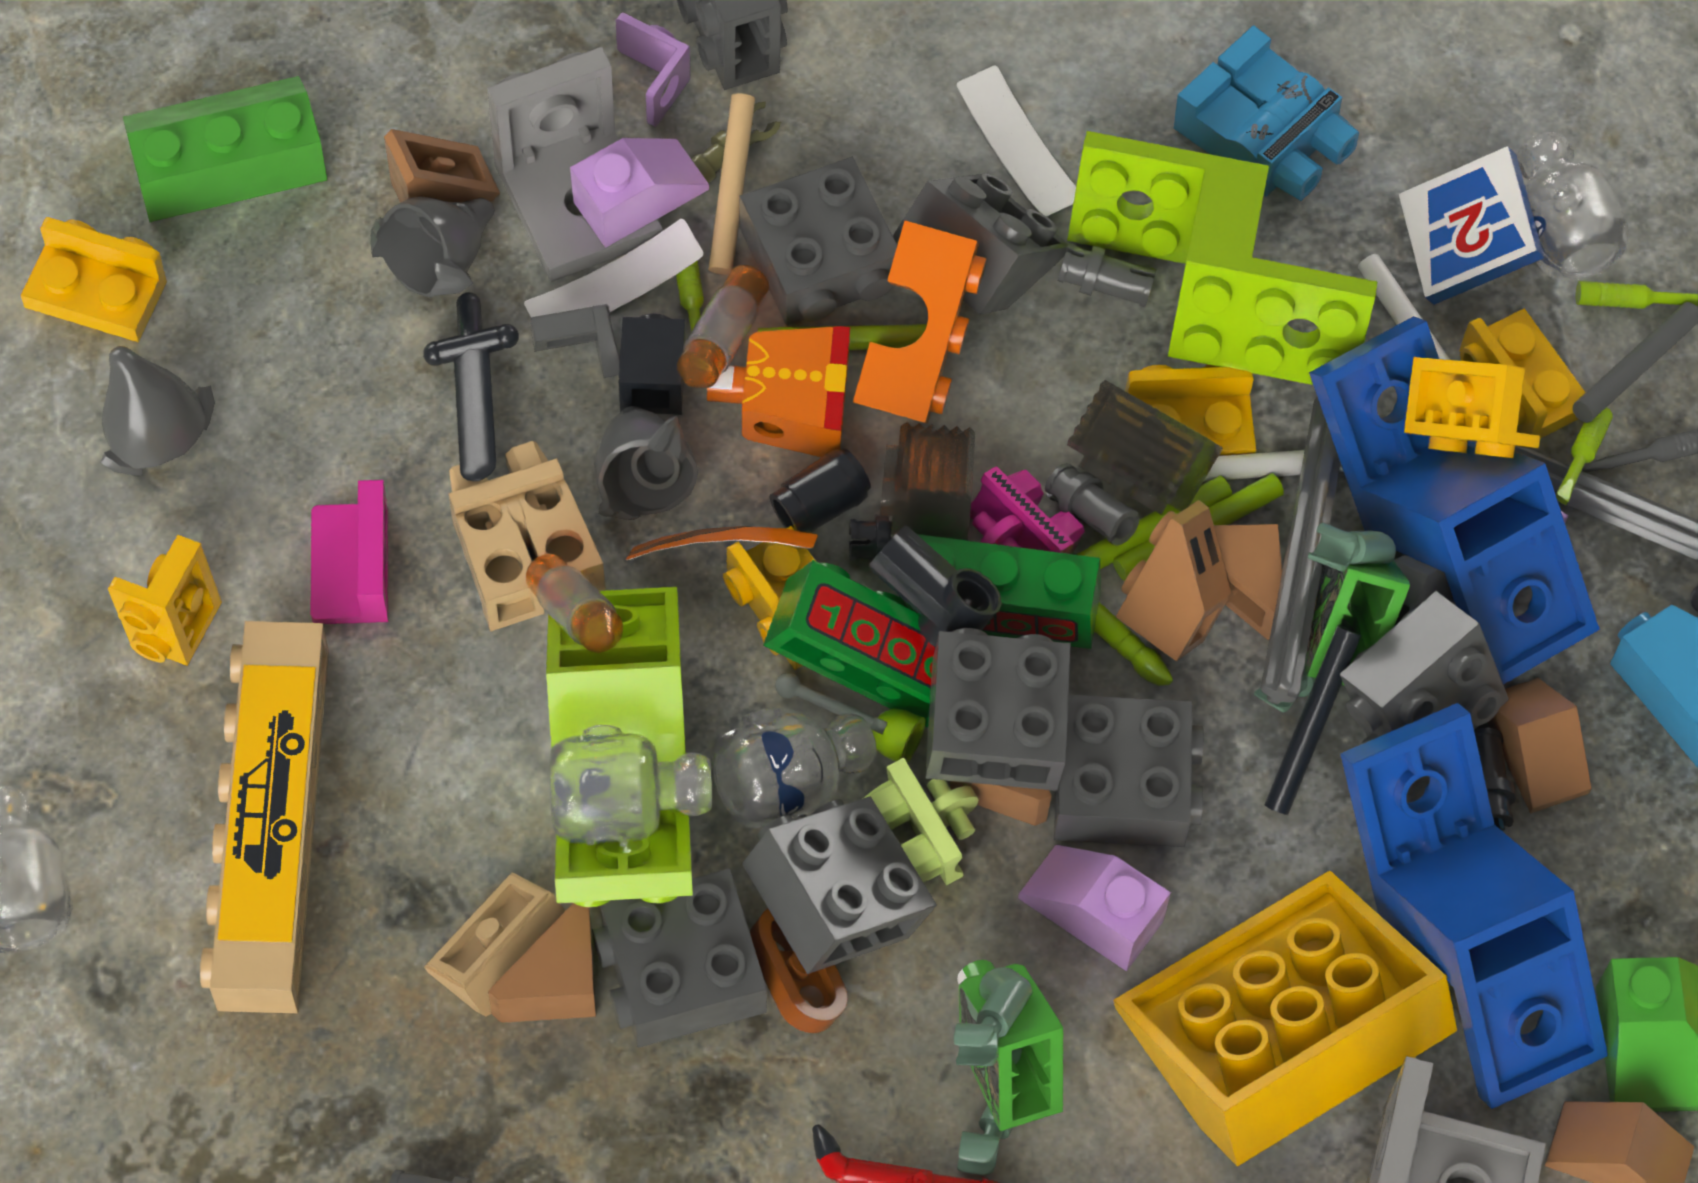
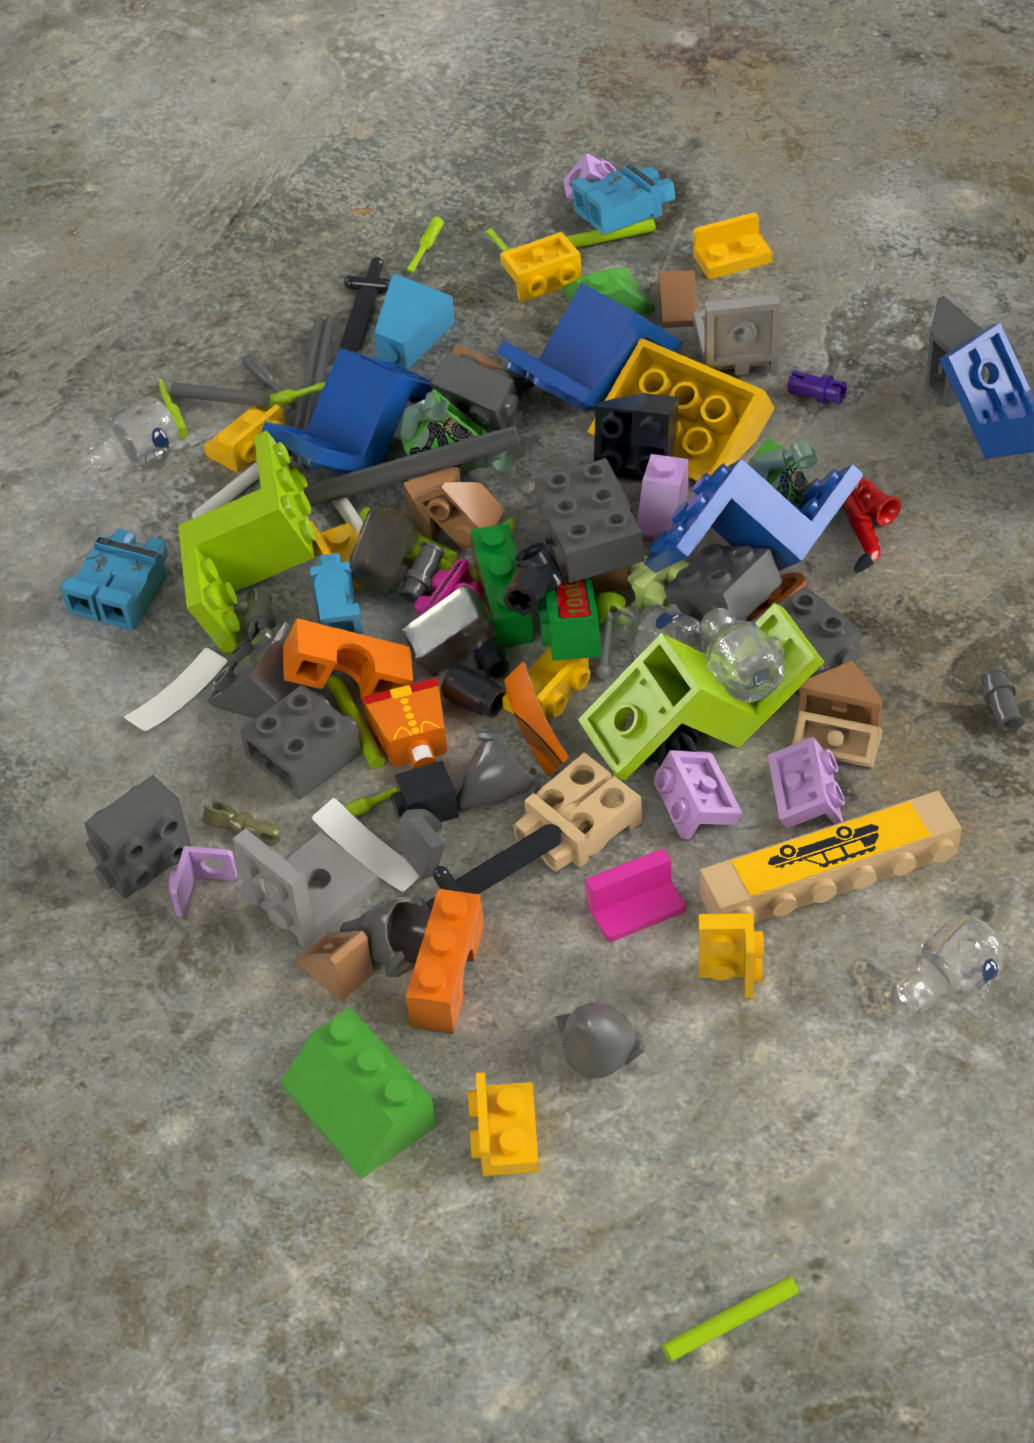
camera: 105 degrees left, 15 degrees down
(327, 266) = (438, 974): none -> orange arch
(422, 851) = (805, 783): none -> lavender bracket
(483, 704) = (695, 792): none -> lavender bracket
(574, 603) = (634, 721): piece -> none
(633, 185) = (308, 838): lavender slope -> none
(722, 327) = (388, 761): piece -> none
(731, 183) = (271, 803): tan bar -> none
(908, 956) = (752, 514): none -> bracket
(1039, 349) = (335, 594): none -> dark azure hips
(1240, 907) = (633, 429): none -> black slope
(1312, 720) = (526, 442): black bar -> none
(1465, 404) = (313, 391): yellow bracket -> none
(1471, 225) = (162, 470): tile -> none

